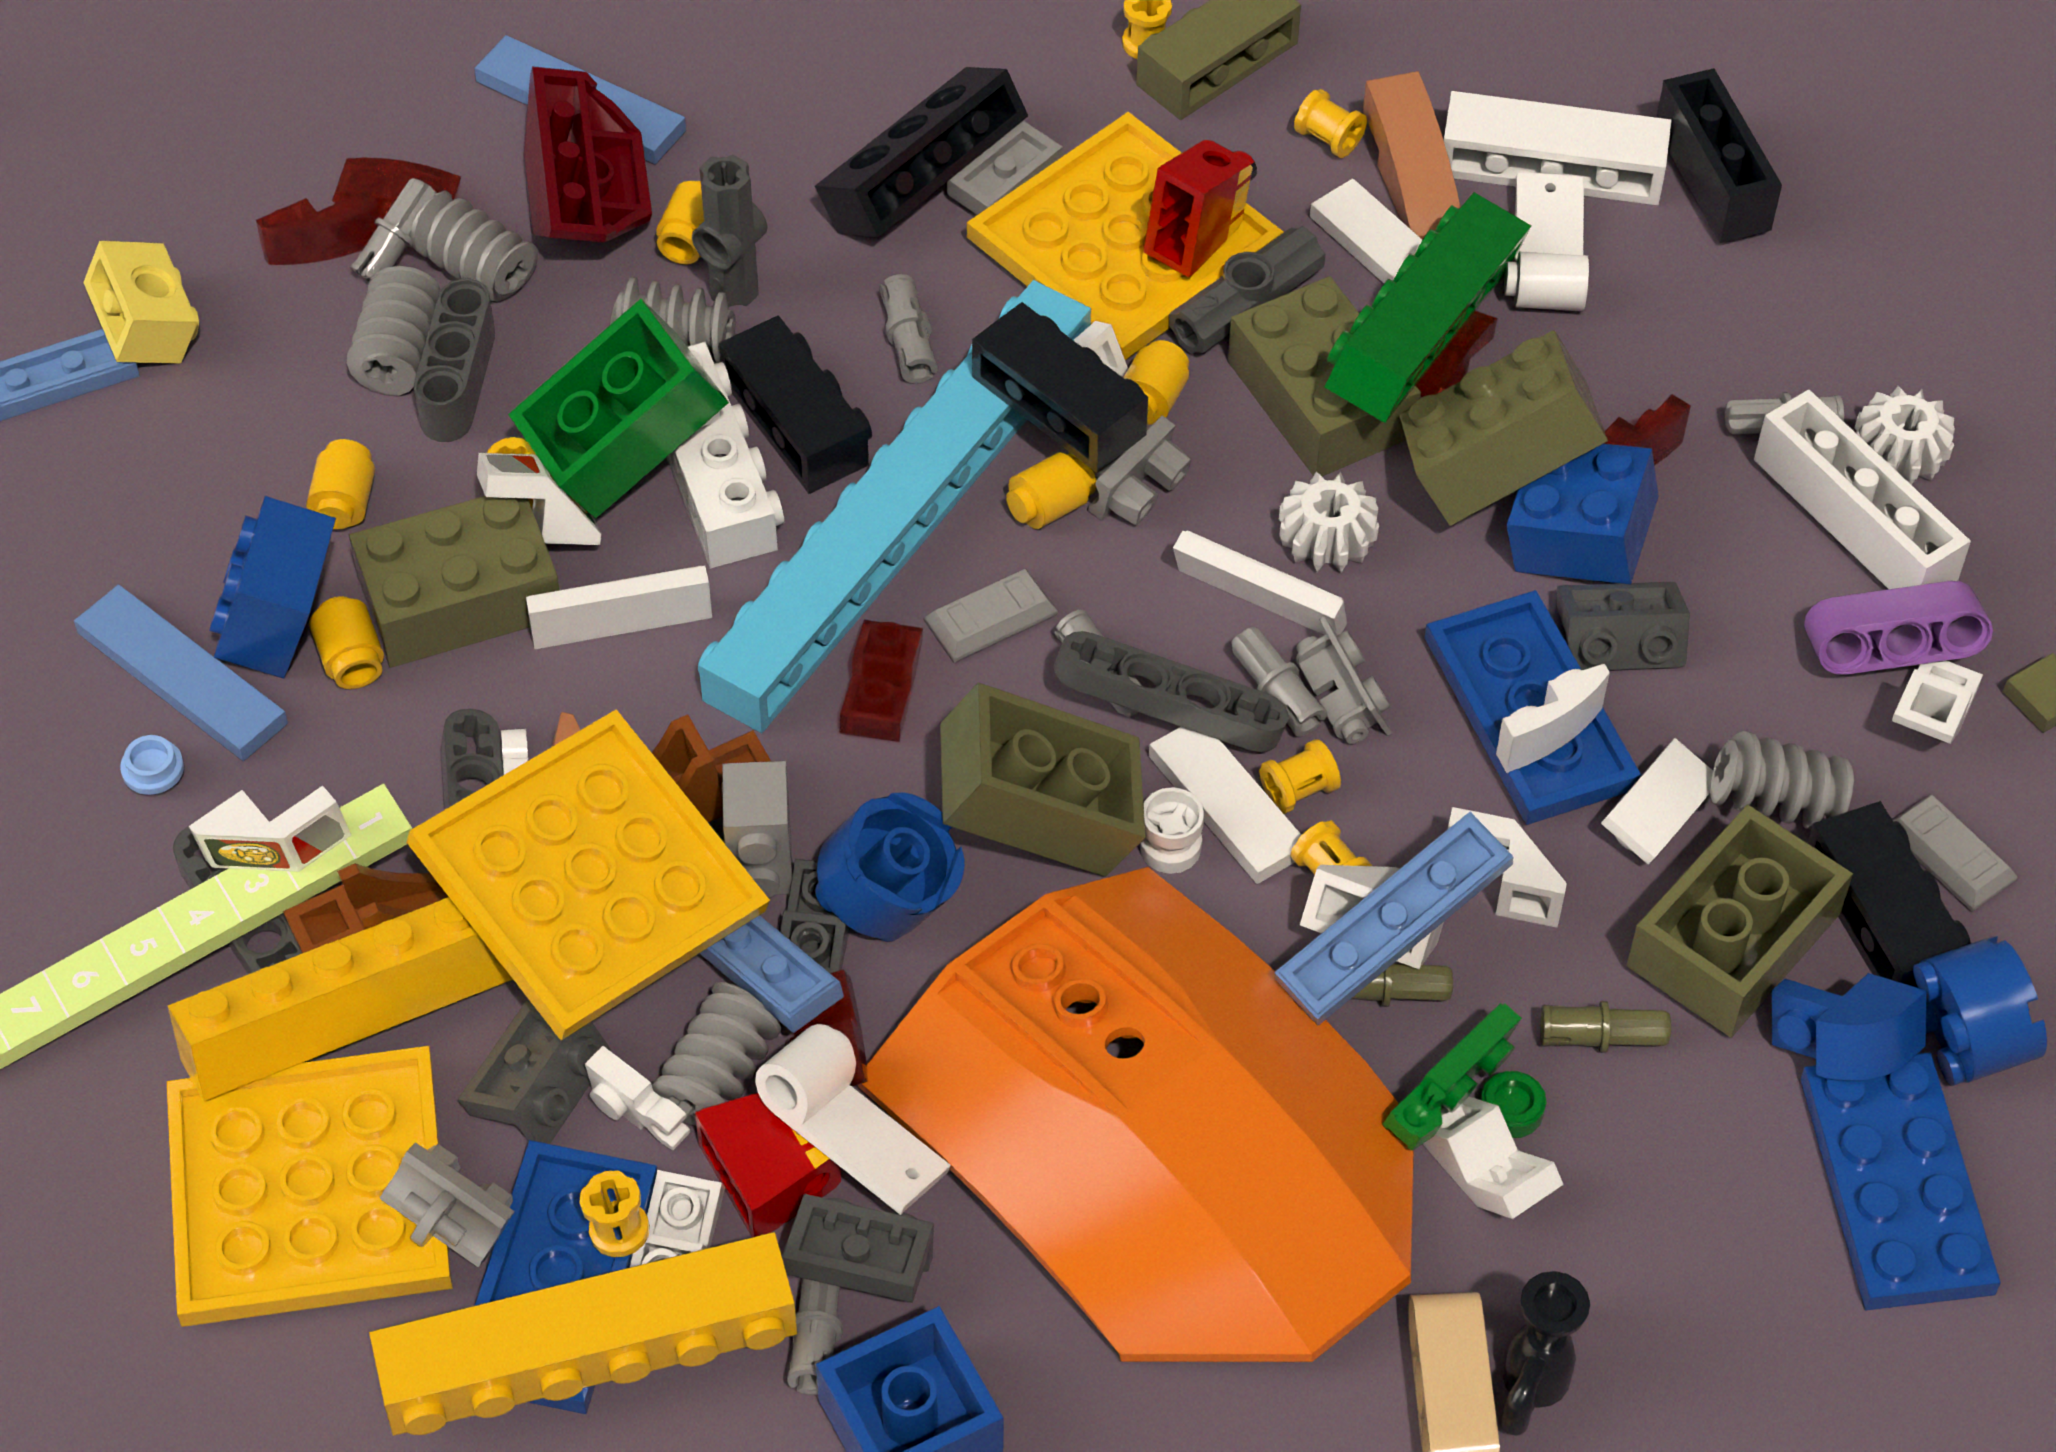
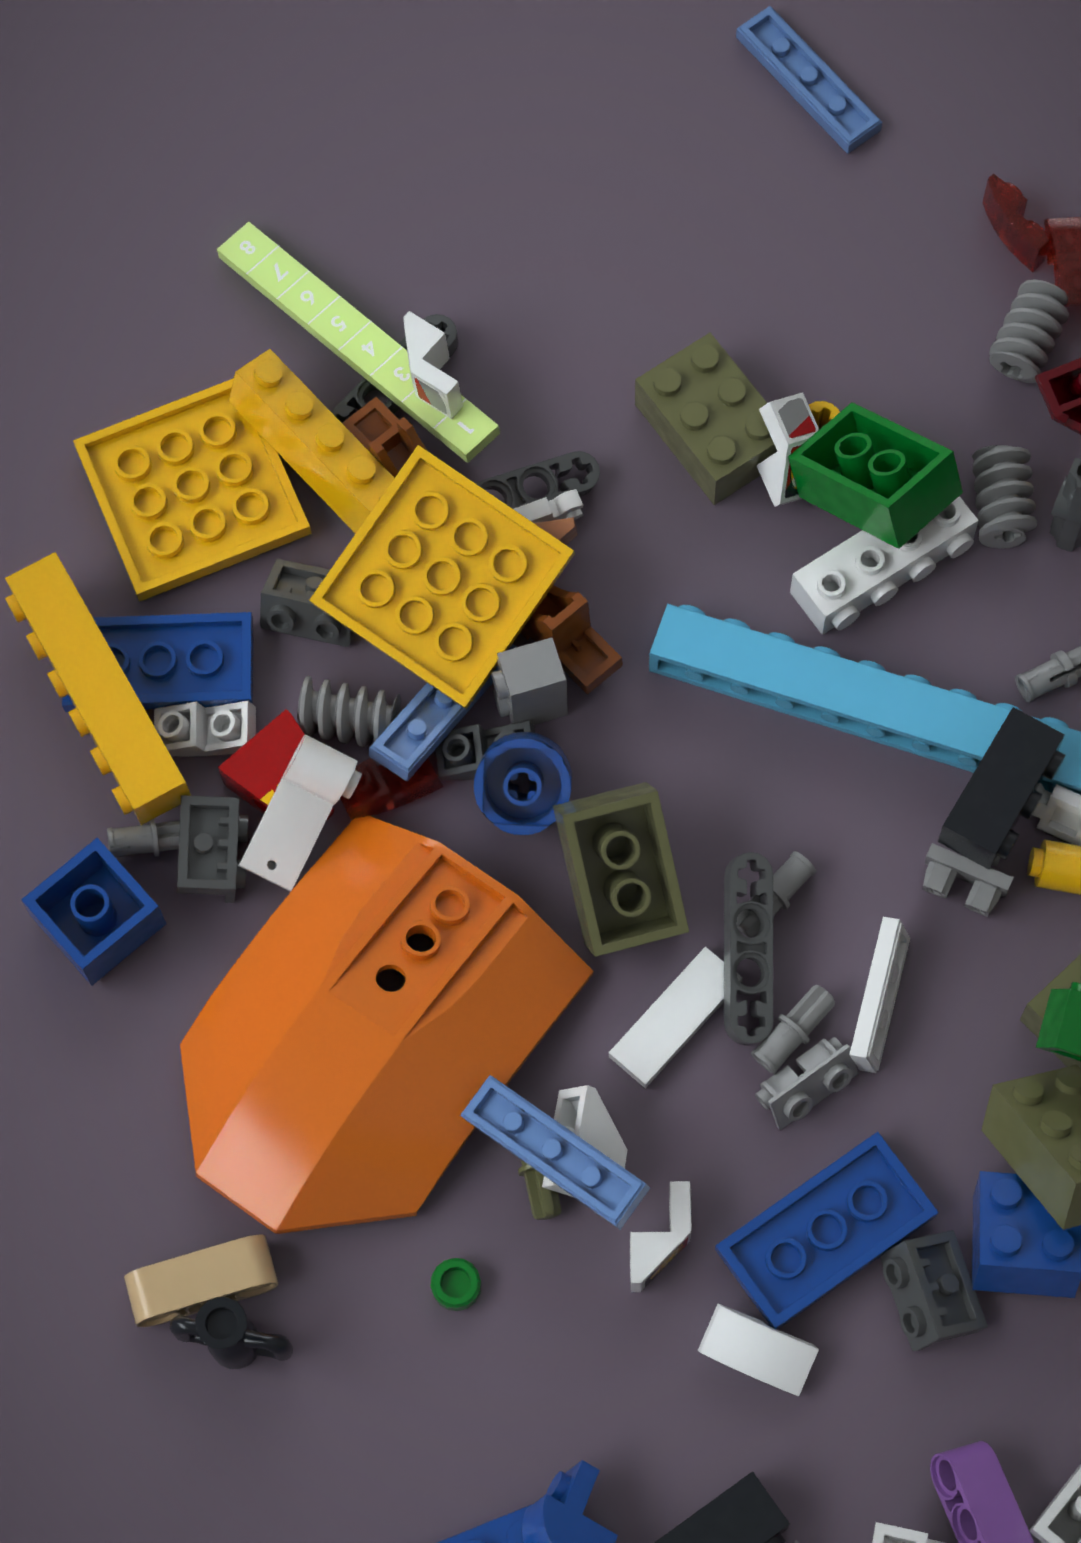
camera: 80 degrees right, 15 degrees up
(141, 302) = (873, 135): light yellow brick -> none
(151, 765) = (499, 280): light blue plate -> none
(181, 672) = (585, 271): medium blue tile -> none
(270, 586) = (649, 297): blue brick -> none
(342, 482) = (774, 316): yellow brick -> none
(347, 642) = (631, 363): yellow brick -> none
(392, 329) = (930, 301): light grey piece -> none
(393, 231) = (1018, 270): light grey axle -> none
(447, 1203) = (169, 570): light grey hips -> none
(454, 360) = (933, 340): dark grey beam -> none
(608, 1215) = (190, 665): yellow bush -> none
(619, 607) = (720, 537): white tile -> none
(626, 1093) = (303, 659): white plate -> none
(796, 404) = (954, 605): black brick -> none
(881, 680) = (714, 741): clear red slope -> none
(990, 615) = (803, 804): light grey tile -> none
(1050, 490) = (924, 811): yellow brick -> none
(1172, 830) = (628, 969): white wheel -> none
(1300, 775) = (705, 1064): yellow bush -> none
(1323, 846) = (633, 1104): yellow bush -> none
(1328, 521) = (959, 1051): white gear -> none
(1451, 1081) = (445, 1229): green hinge -> none
(1485, 1162) = (398, 1272): white slope -> none
(1568, 708) = (809, 1254): white slope -> none
(1603, 1026) = (537, 1340): olive axle -> none
(1739, 920) = (648, 1426): olive brick -> none
(1781, 776) = (794, 1440): light grey piece -> none

